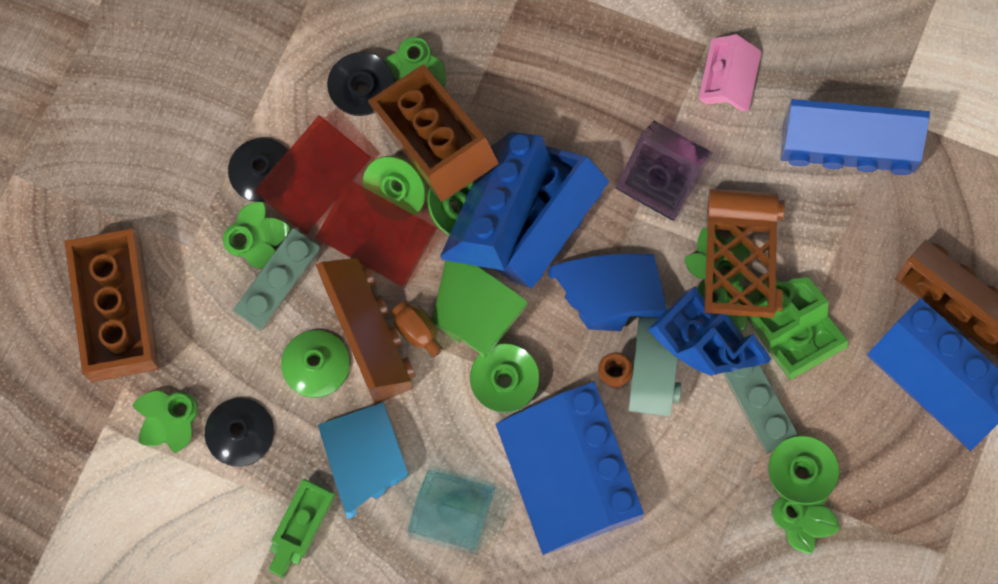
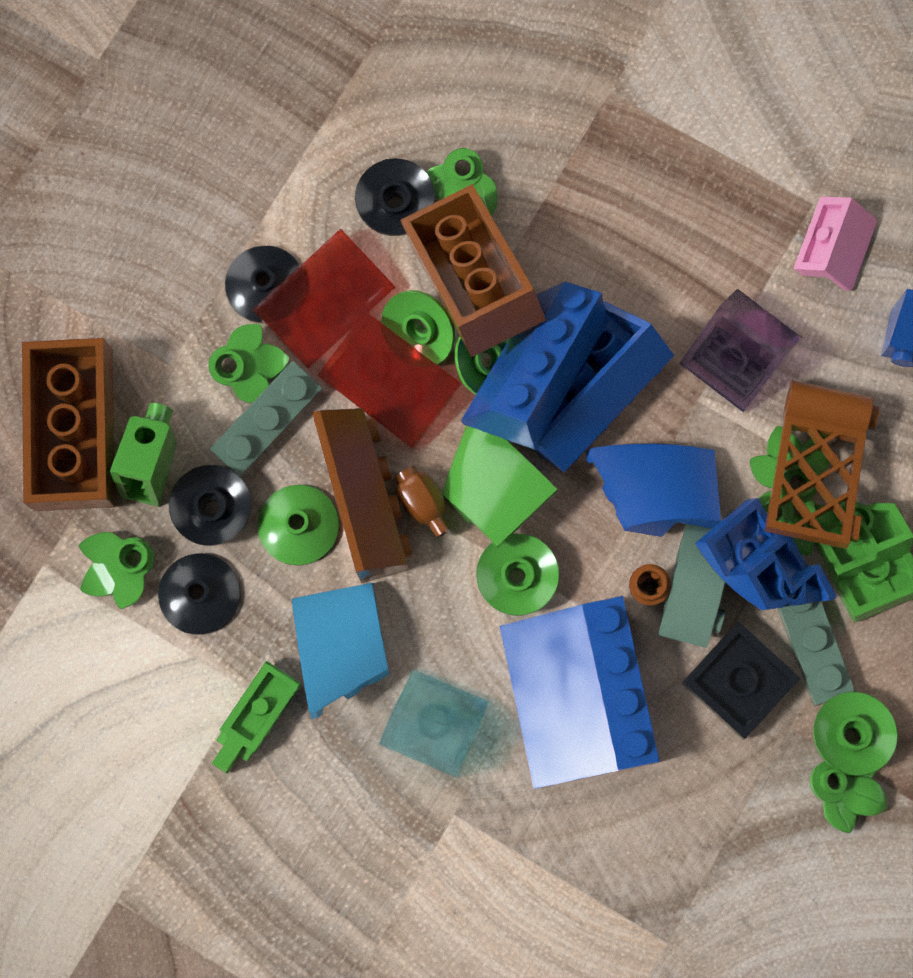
camera: 10 degrees right, 5 degrees up
(179, 323) = (145, 456): none -> bright green torso
(228, 344) = (196, 490): none -> black dish
(702, 440) = (740, 680): none -> black plate

